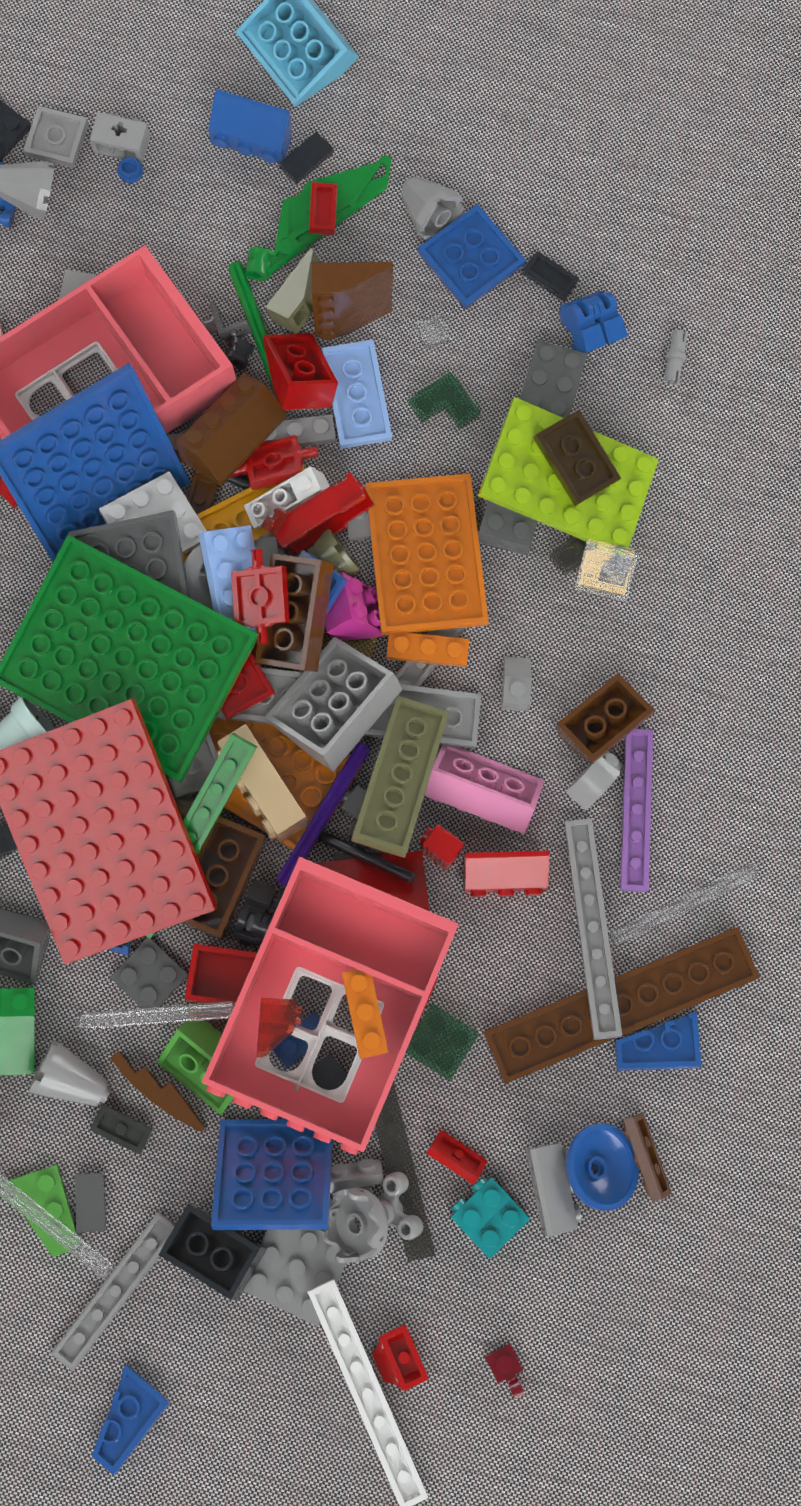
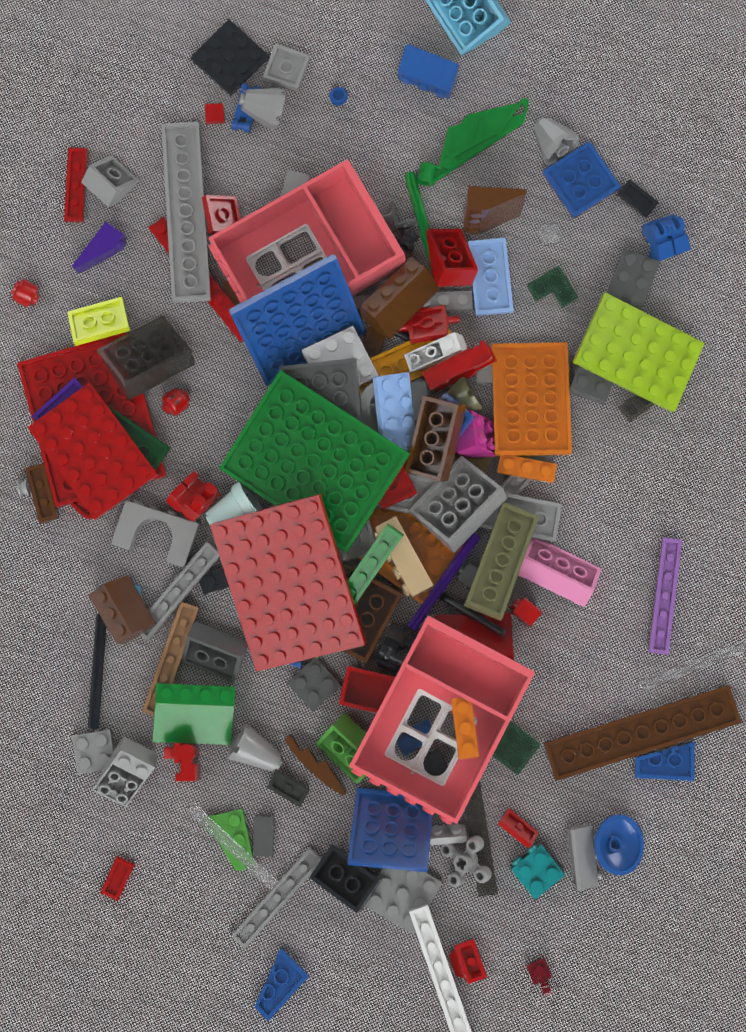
camera: 15 degrees right, 5 degrees up
(119, 136) = (339, 78): light grey brick -> none
(155, 1015) = (318, 712): clear axle -> none
(260, 596) = (413, 426): plate -> none
(273, 524) = (425, 372): clear red tile -> none
(276, 1023) = (404, 731): clear red slope -> none
(293, 301) = (451, 203): slope -> none
(306, 158) = (467, 96): black tile -> none
(323, 208) = (476, 136): red tile -> none
(343, 1234) = (441, 881): light grey plate -> none
(506, 873) = (569, 634): slope -> none
(516, 684) = (587, 498): light grey slope -> none
(577, 457) = (646, 340): dark brown plate -> none
(593, 929) = (626, 678): light grey plate -> none
(595, 780) = (638, 572): light grey brick -> none
(603, 719) = (648, 530): reddish brown slope -> none
(606, 570) = (659, 421): clear tile -> none
(646, 1157) = (650, 840): reddish brown plate -> none
(675, 357) = (723, 266): light grey pin -> none

